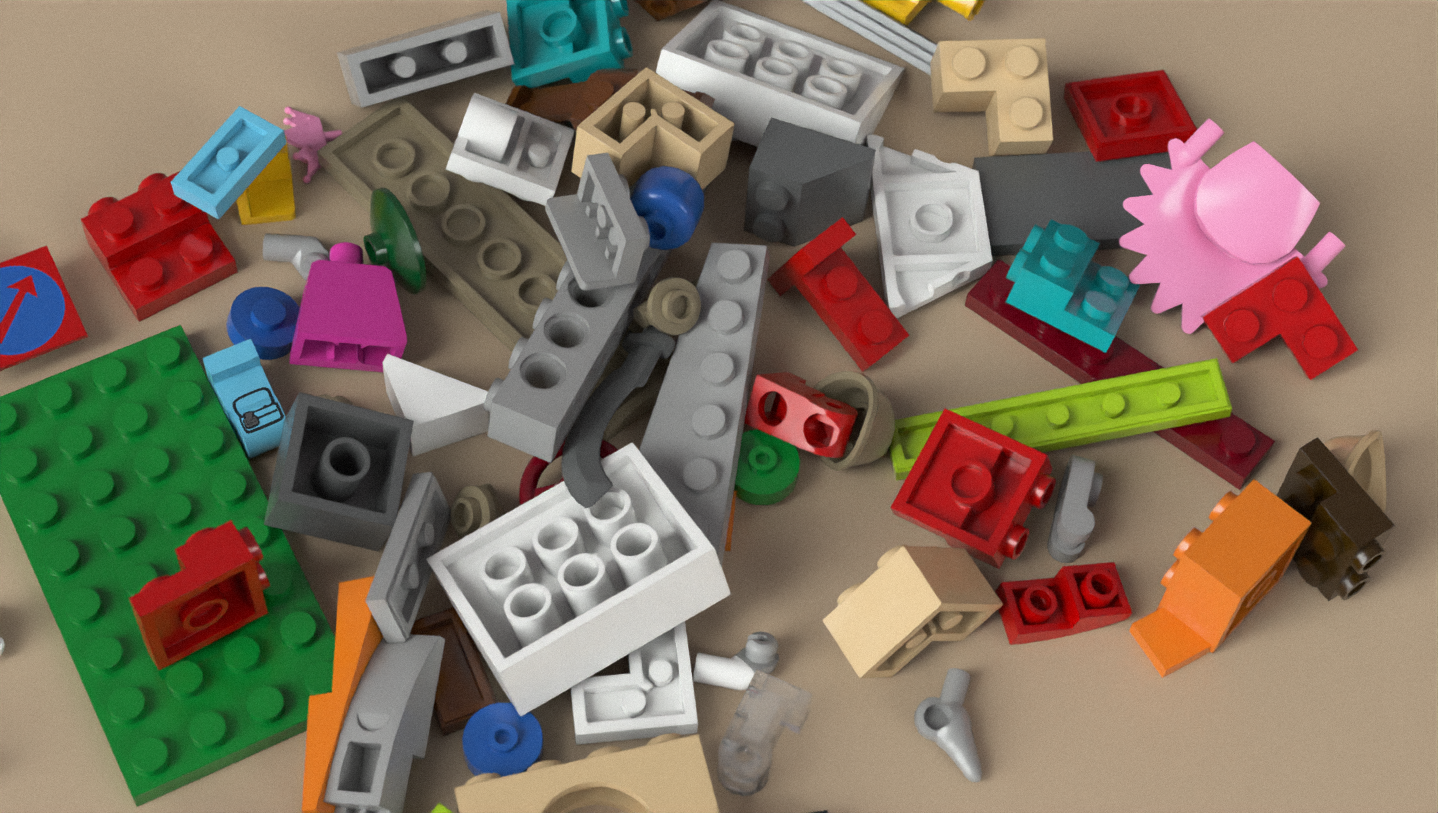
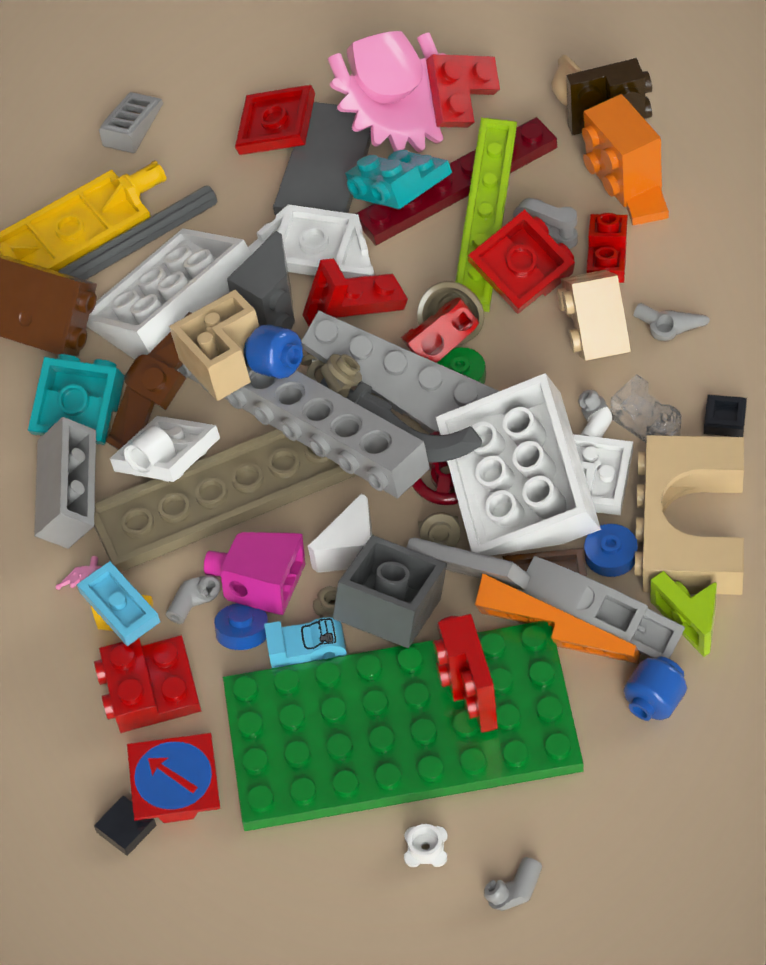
camera: 60 degrees left, 5 degrees down
(395, 241) = (216, 521): dark green dish -> none
(600, 227) = (280, 381): light grey bracket -> none
(1004, 80) = (242, 168): tan brick -> none

